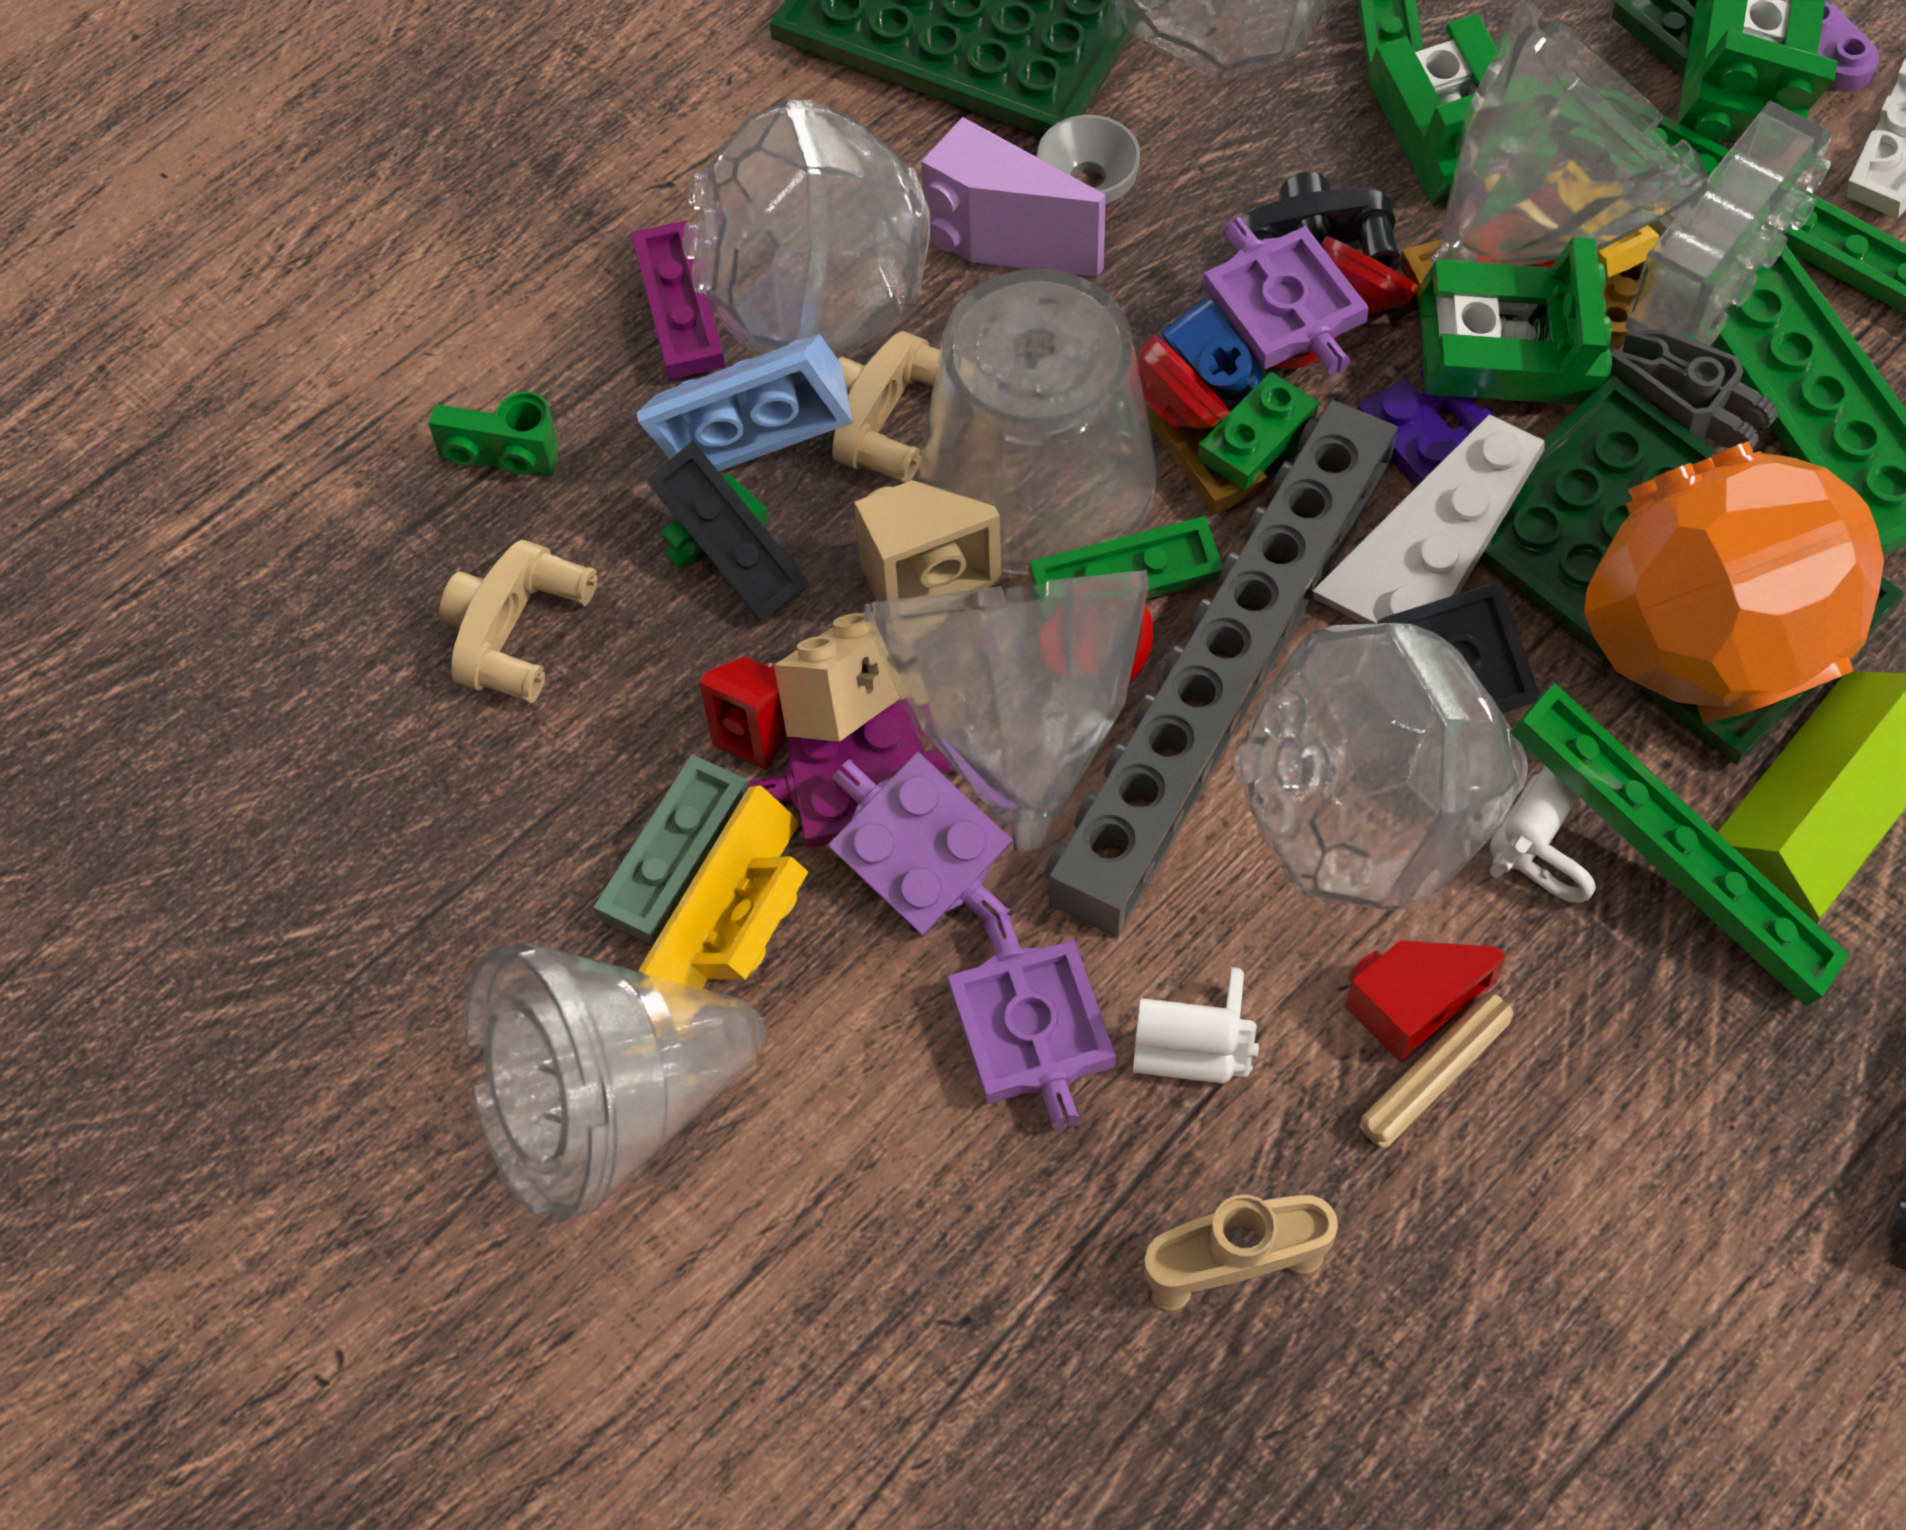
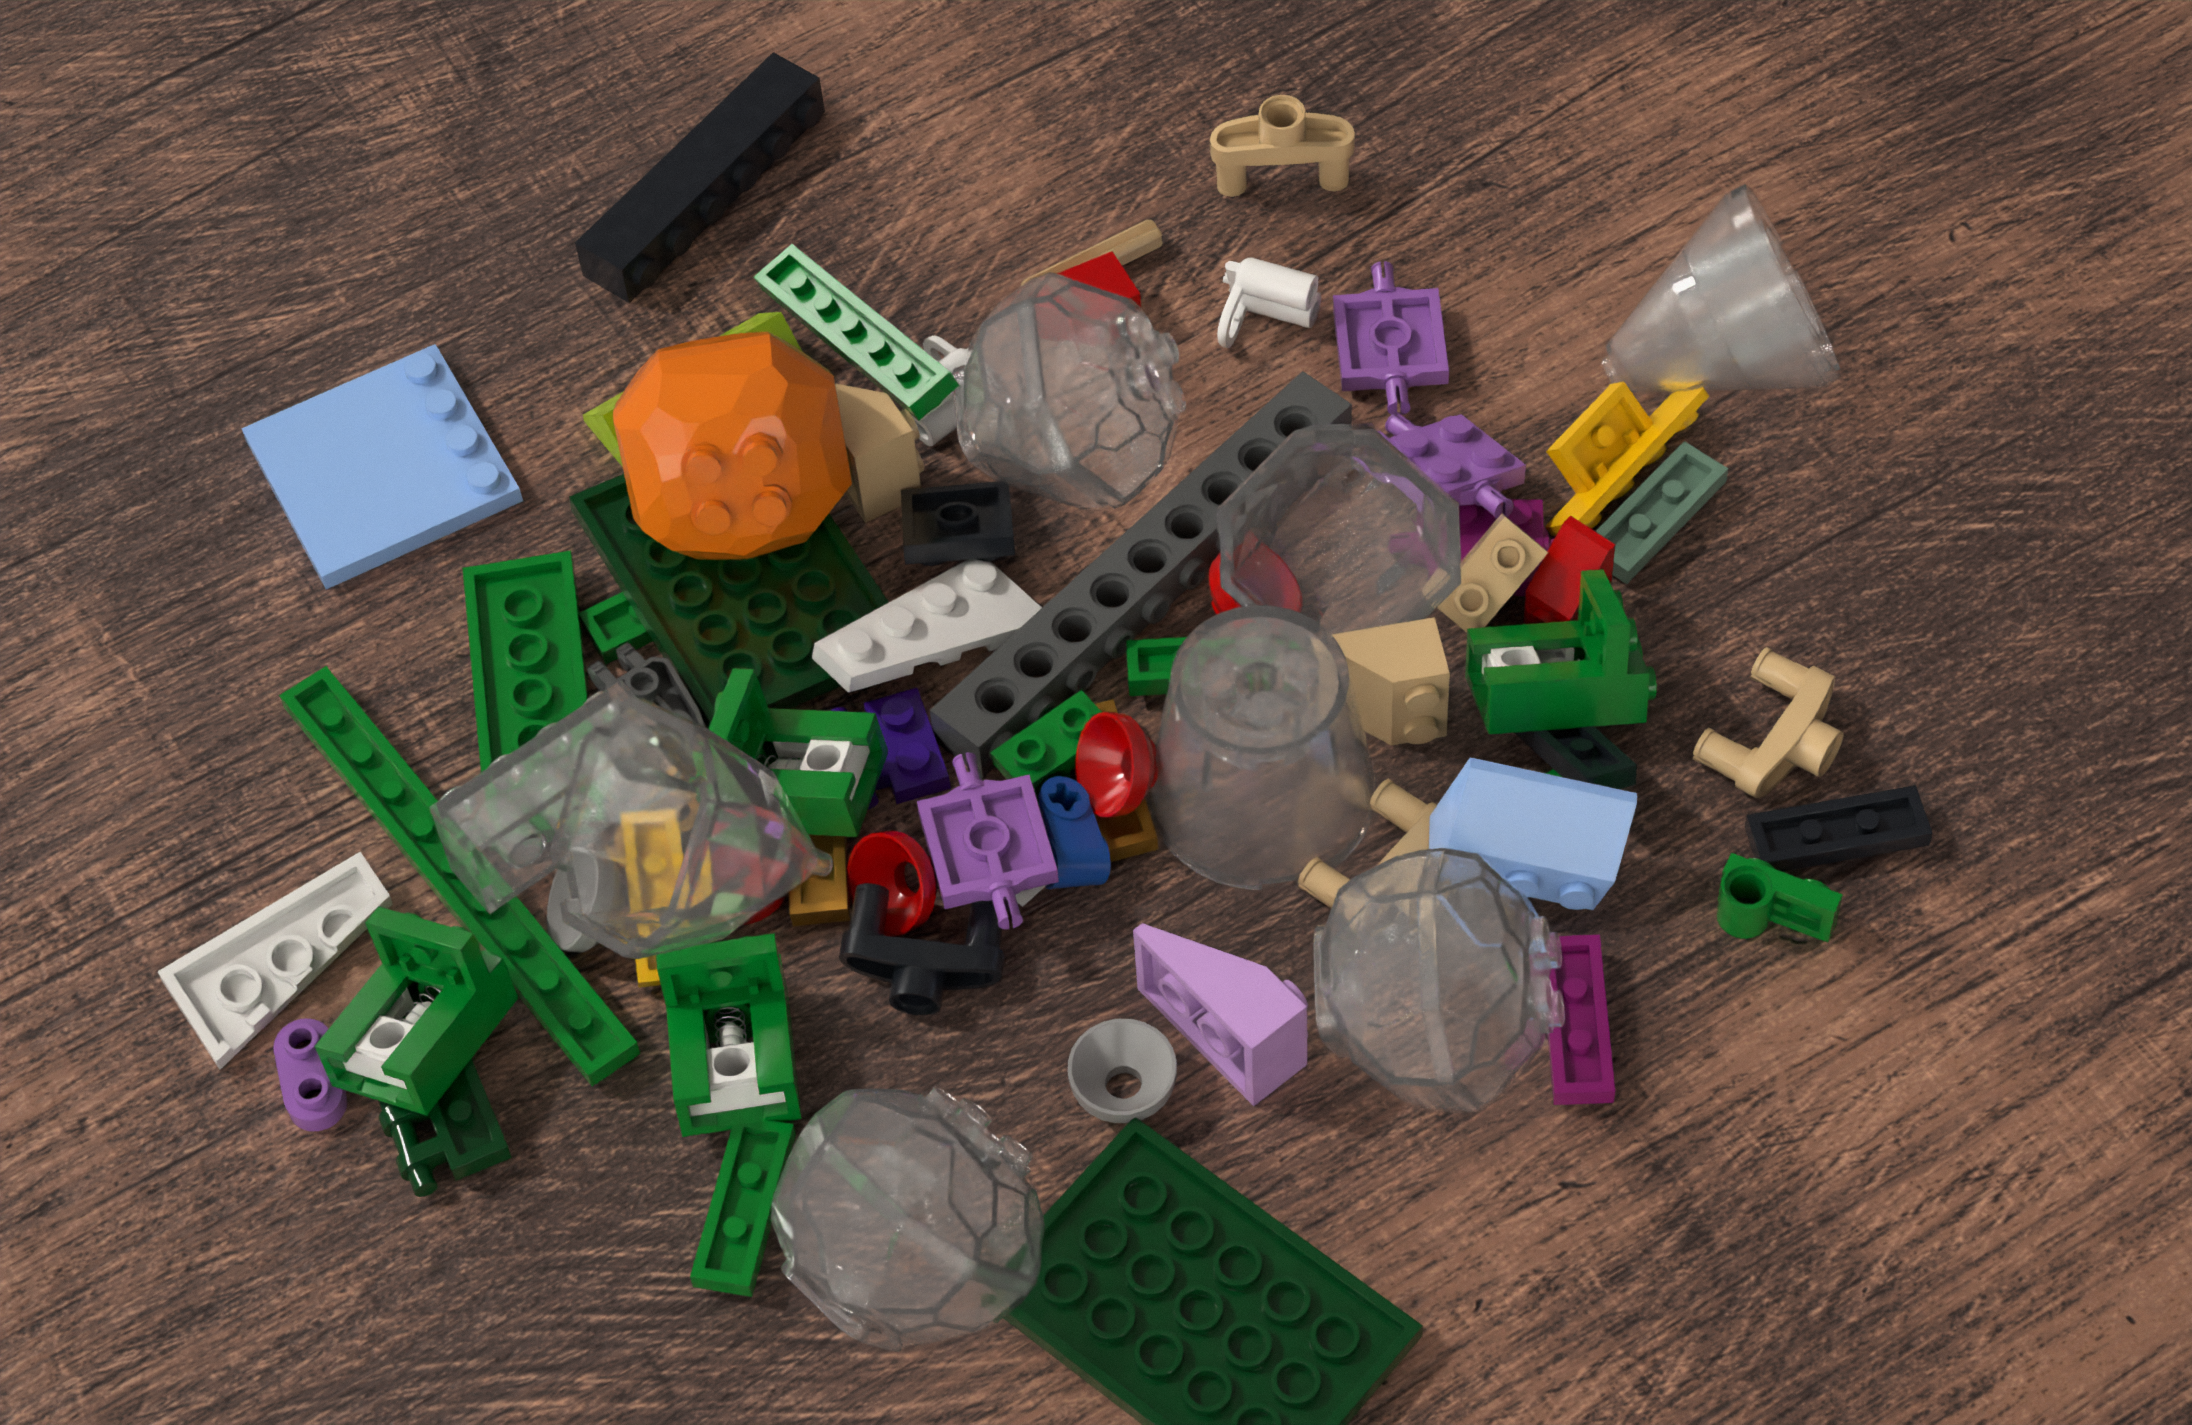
camera: 165 degrees left, 5 degrees down
(440, 524) = (1839, 829): none -> black plate
(684, 590) = (1562, 670): none -> green brick
(1617, 694) = (878, 450): none -> tan slope

